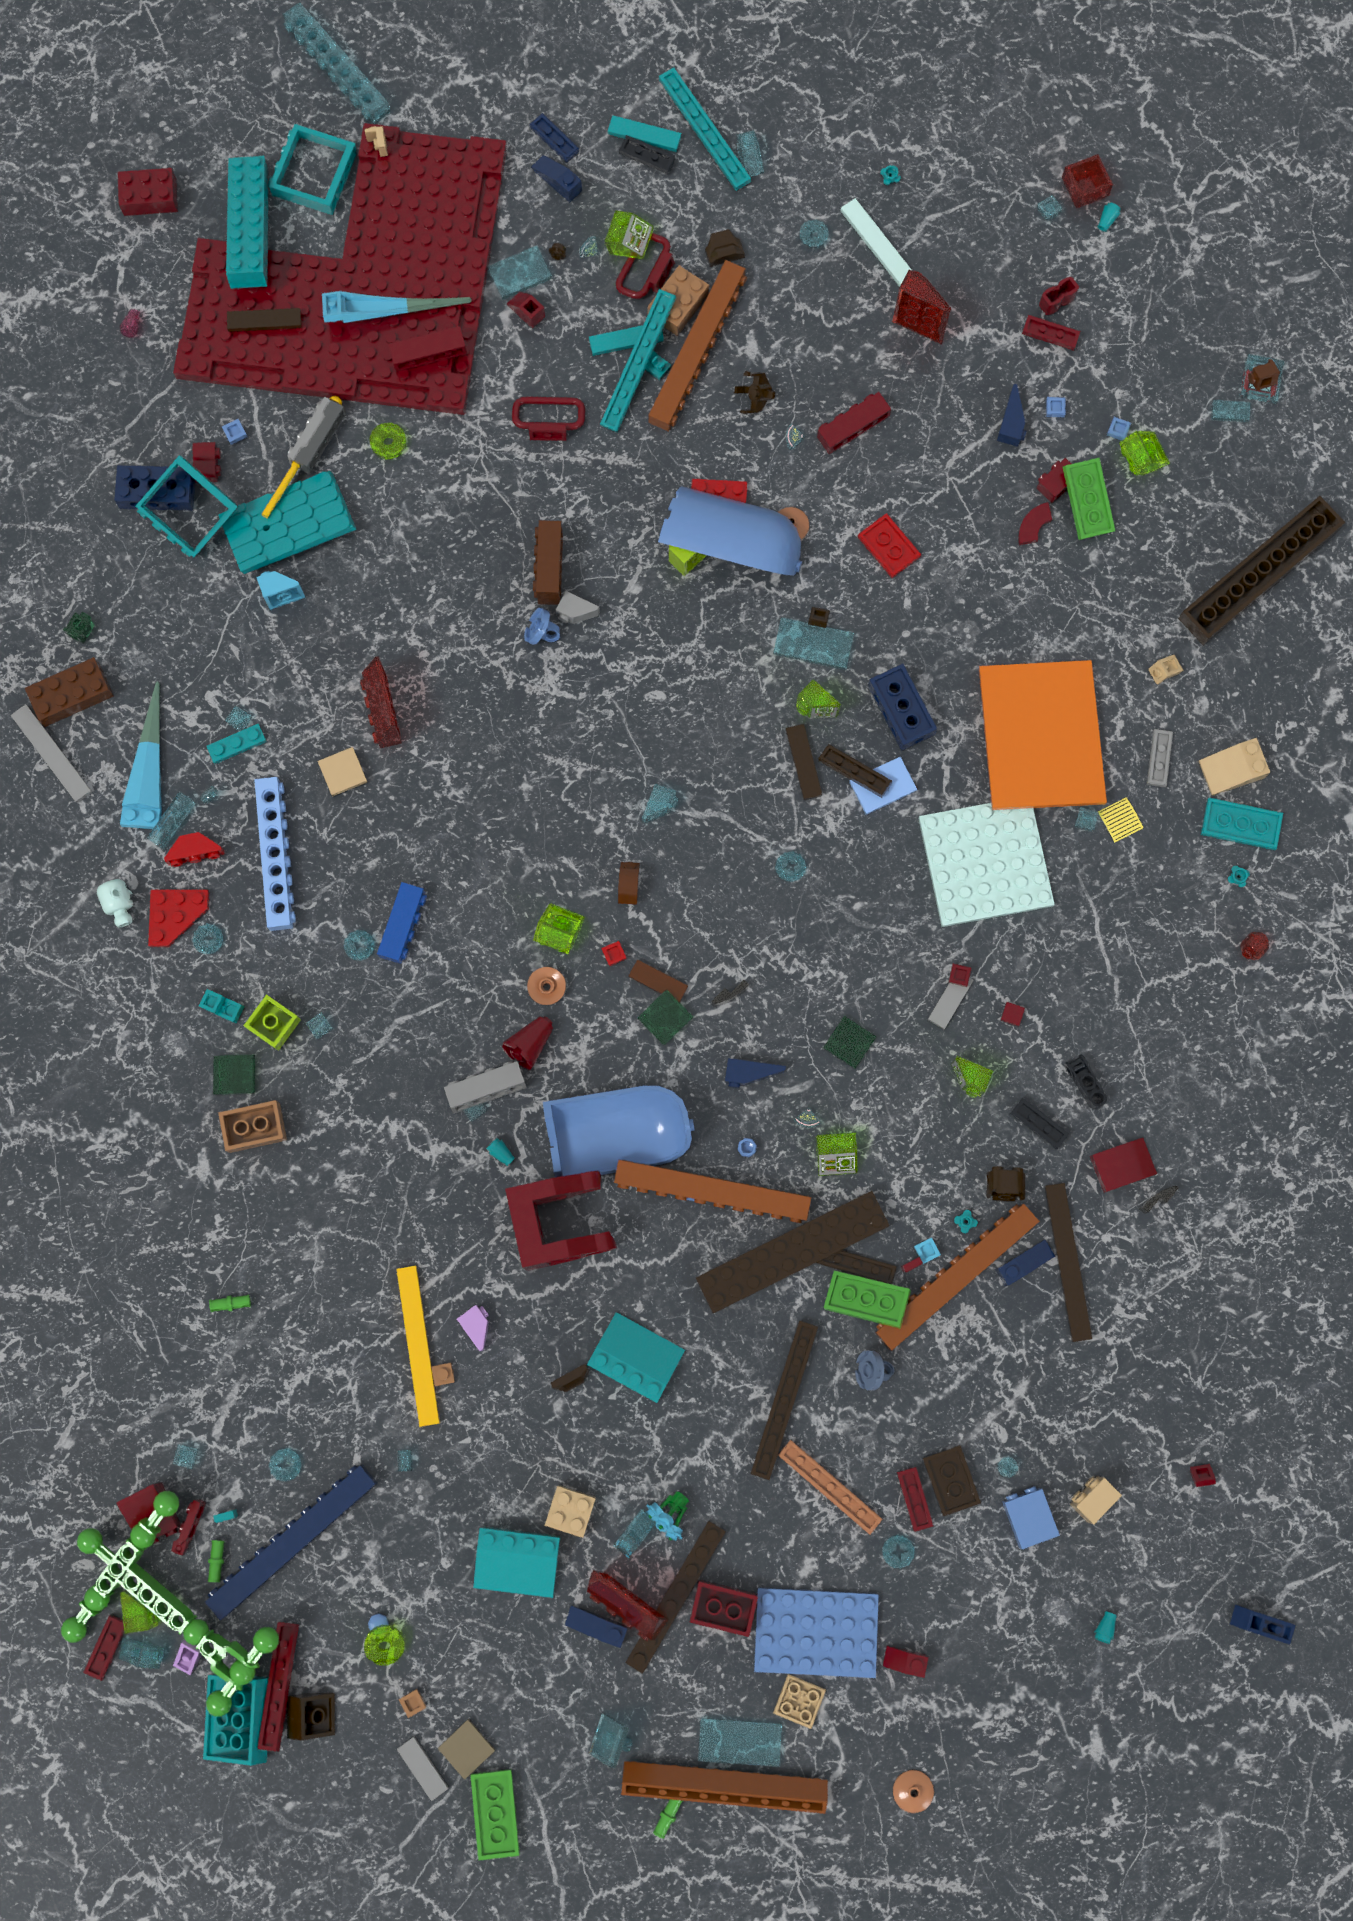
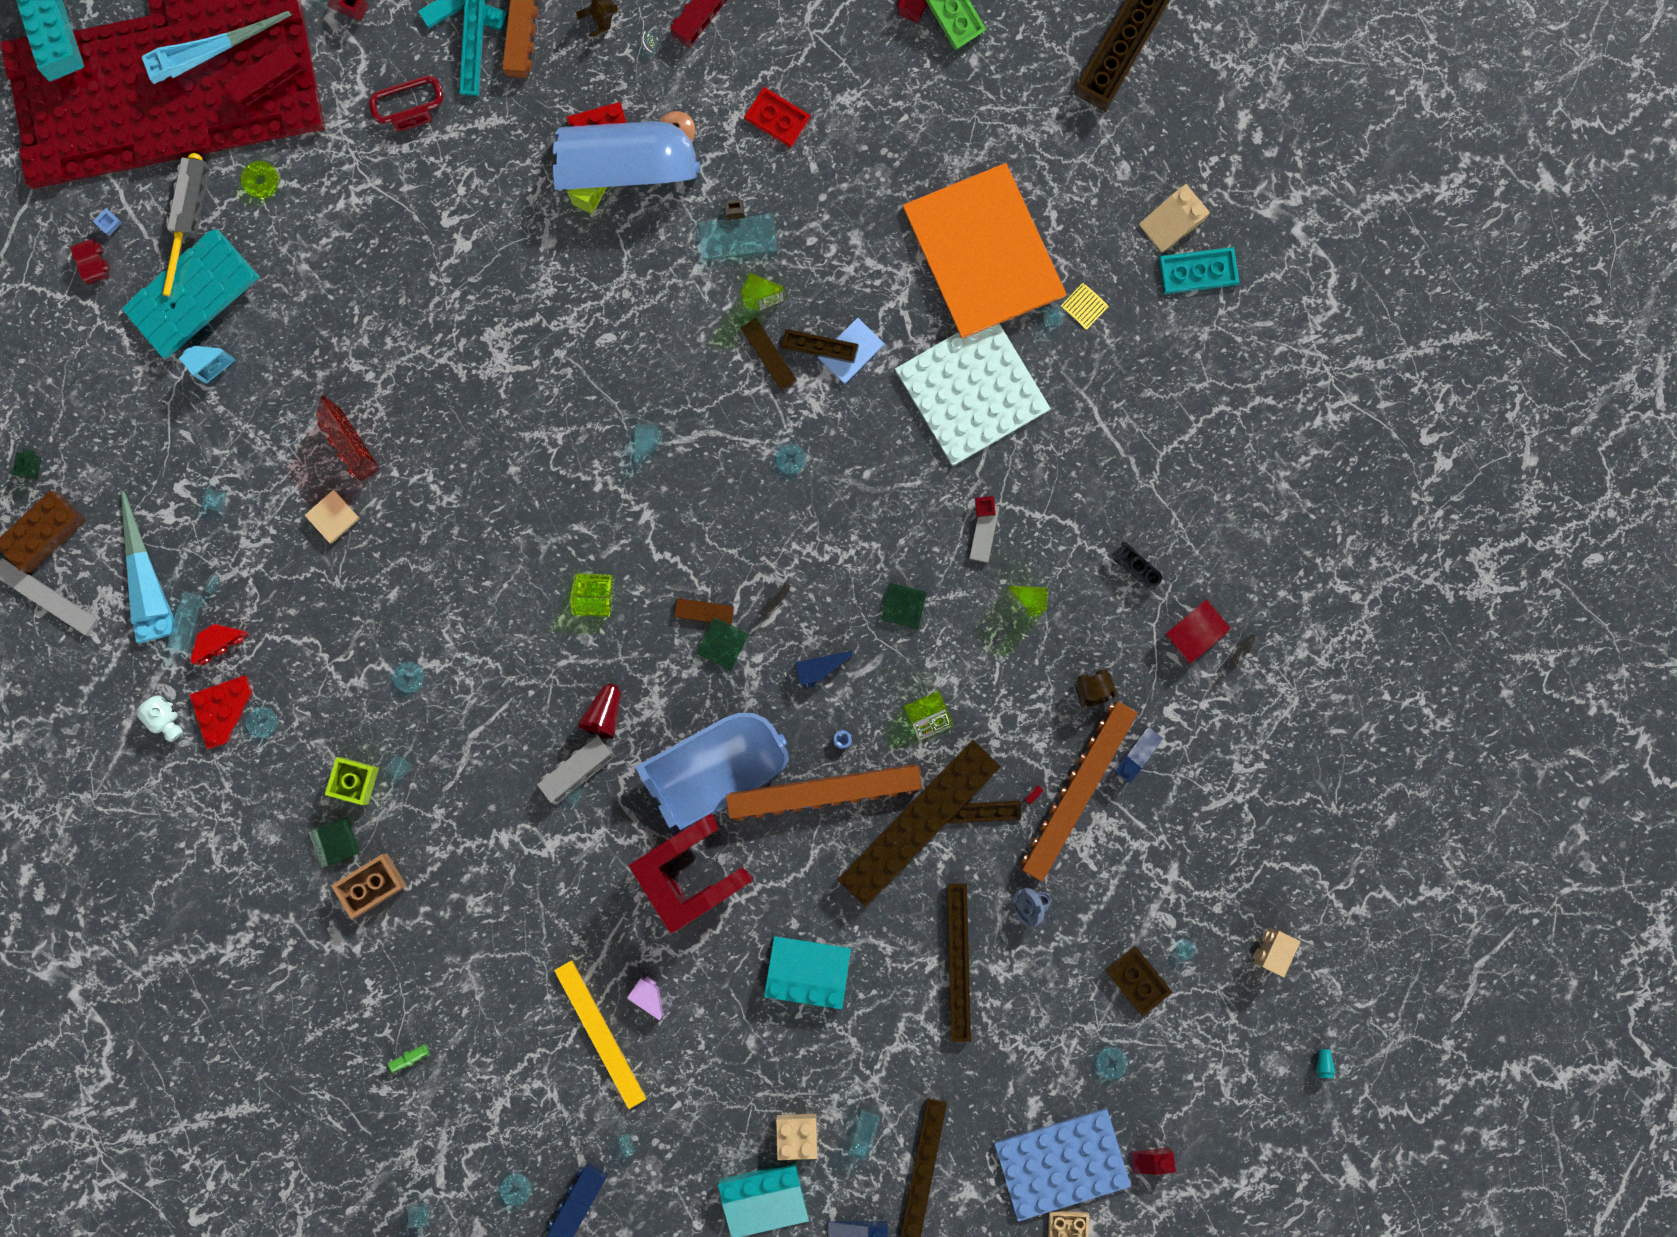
camera: 20 degrees left, 5 degrees up
(144, 477) = (49, 303): dark blue brick -> none
(160, 525) = (66, 338): teal window -> none
(221, 1006) = (298, 781): teal slope -> none
(236, 743) = (220, 525): teal plate -> none
(264, 319) = (94, 101): dark brown tile -> none
(264, 788) = (262, 560): light blue brick -> none
(401, 923) = (441, 642): blue brick -> none
(443, 1374) = (633, 1052): medium nougat plate -> none
(500, 1152) = (612, 825): teal cone -> none
(540, 626) = (471, 312): medium blue tile -> none
(544, 976) = (590, 653): nougat dish -> none
(548, 562) = (457, 245): reddish brown brick -> none
(571, 1380) = (754, 1015): dark brown slope -> none
(575, 609) = (499, 282): light grey slope -> none
(614, 953) = (653, 600): red plate -> none
(625, 1604) = (879, 1204): clear red slope -> none
(628, 883) = (643, 528): reddish brown brick -> none
(664, 1521) = (888, 1117): plant -> none
(723, 1608) = (970, 1174): dark red brick -> none
(807, 1119) = (889, 693): clear light blue tile -> none
(830, 1487) = (1028, 1026): nougat tile -> none
(867, 1299) = (1003, 842): bright green plate -> none
(897, 718) = (844, 256): dark blue brick -> none
(914, 1499) = (1110, 1010): dark red plate -> none
(927, 1250) = (1043, 776): medium azure plate -> none
(965, 1226) = (1064, 736): teal plate -> none
(1012, 1014) = (1046, 526): dark red tile -> none
(1030, 1517) = (1222, 989): medium blue brick -> none
(1033, 522) = (905, 49): dark red tile -> none
(1039, 1123) = (1106, 620): black plate -> none
(1068, 1262) = (1176, 740): dark brown tile -> none
(1159, 758) = (1101, 234): light grey tile -> none
(1165, 669) = (1078, 147): tan bracket -> none
(1202, 1475) = (1366, 893): dark red plate -> none
(1244, 874) = (1216, 317): teal plate -> none
(1254, 945) = (1249, 382): clear red head -> none
(1262, 1624) = (1465, 1010): dark blue slope -> none

